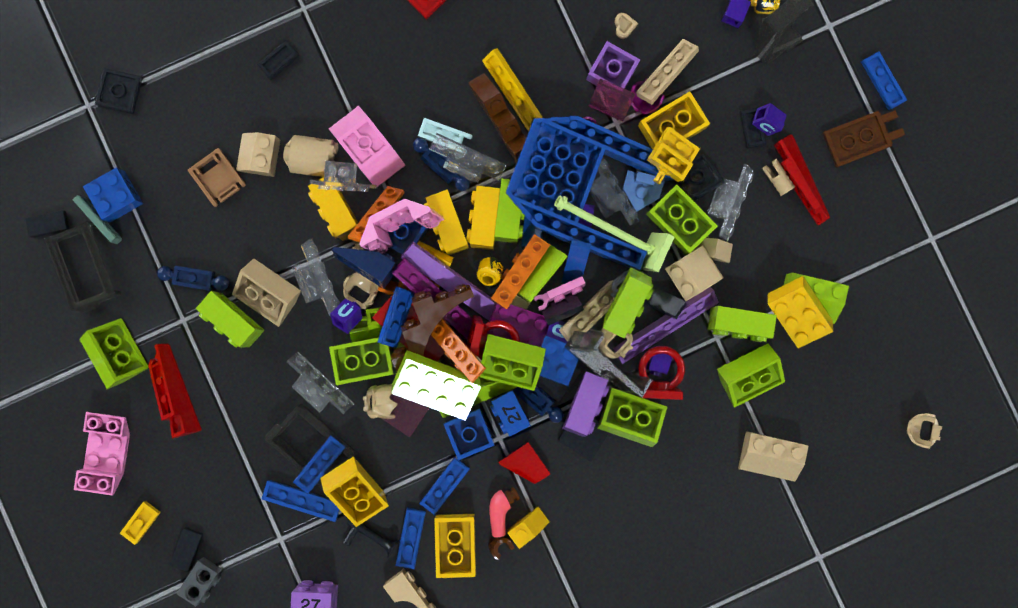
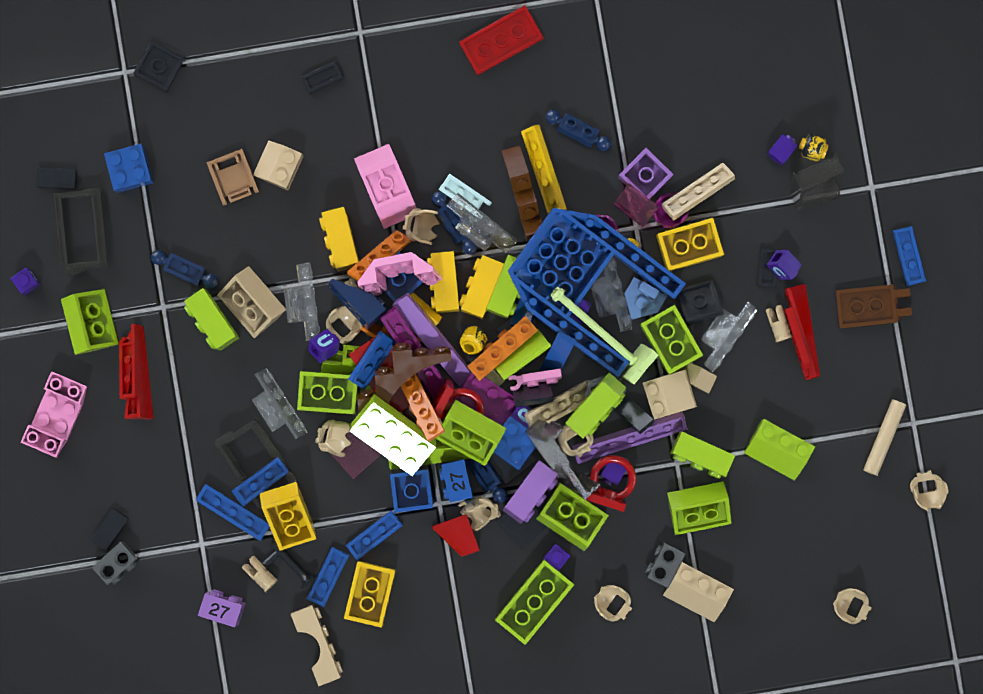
camera: 15 degrees right, 0 degrees up
(41, 331) = (25, 281): none -> dark purple brick
(90, 211) = (107, 187): sand green tile -> none
(140, 522) = (72, 491): yellow plate -> none
(308, 154) = (330, 182): tan cylinder -> none
(341, 175) = (355, 212): clear bracket -> none
(343, 554) = (262, 577): none -> tan hinge
(412, 174) = (422, 227): none -> tan helmet
(498, 508) = (420, 570): coral piece -> none
(528, 527) = (444, 596): yellow slope -> none
(536, 44) = (578, 130): none -> dark blue plate
(538, 436) = (477, 511): none -> tan helmet
(617, 510) = (534, 602): none -> lime brick
(624, 25) = (670, 133): tan tile -> none
(627, 460) = (556, 557): none -> dark purple brick
(672, 156) = (678, 276): yellow plate -> none
(683, 488) = (606, 596): none -> tan helmet
(739, 439) = (669, 566): none -> dark grey brick
(800, 312) = (760, 459): yellow brick -> none
(909, 259) = (884, 437): none -> tan piece
(972, 306) = (929, 499): none -> tan helmet

